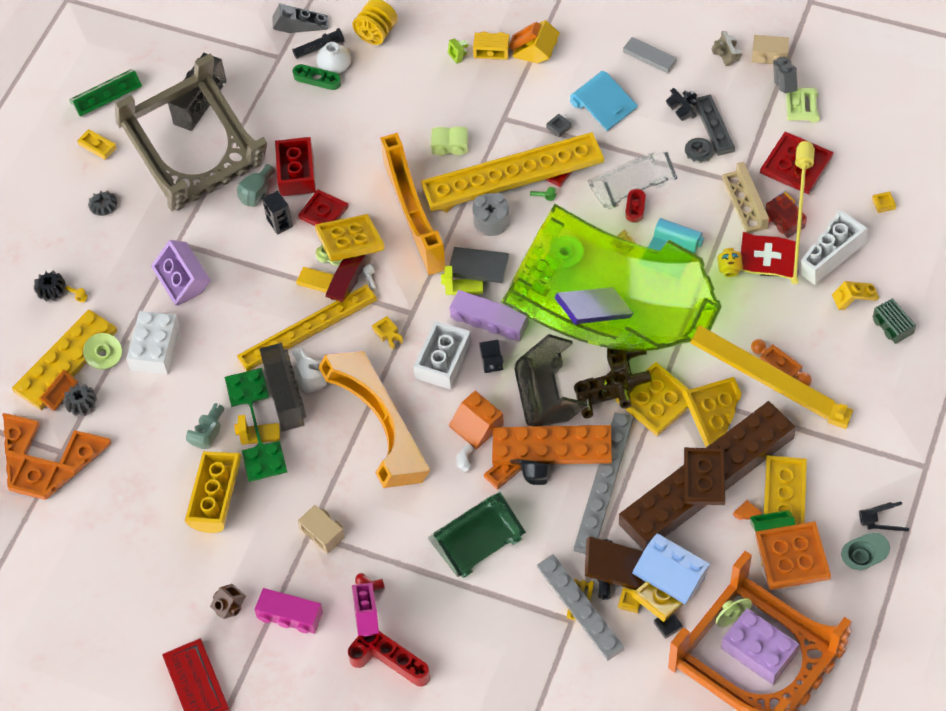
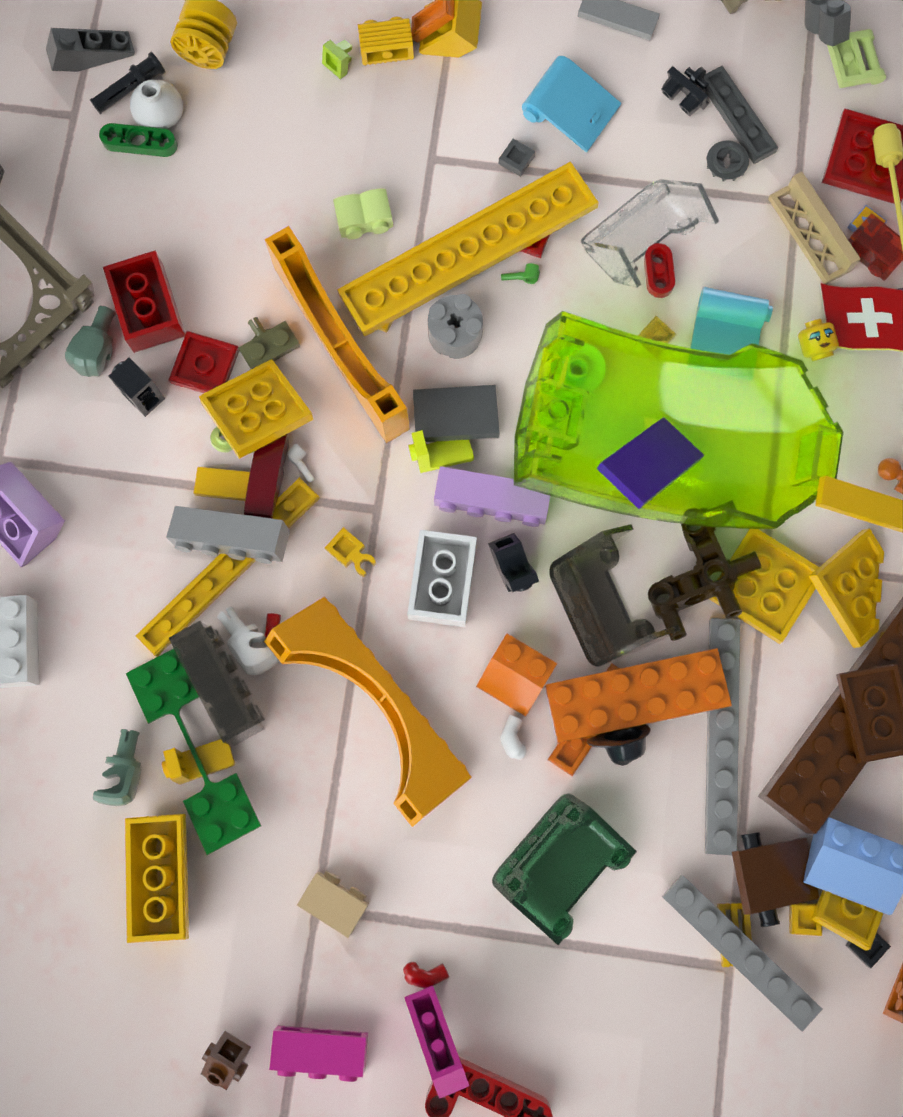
camera: 15 degrees left, 20 degrees up
(312, 305) = (228, 534): none -> light grey brick
(368, 205) = (268, 343): none -> olive plate

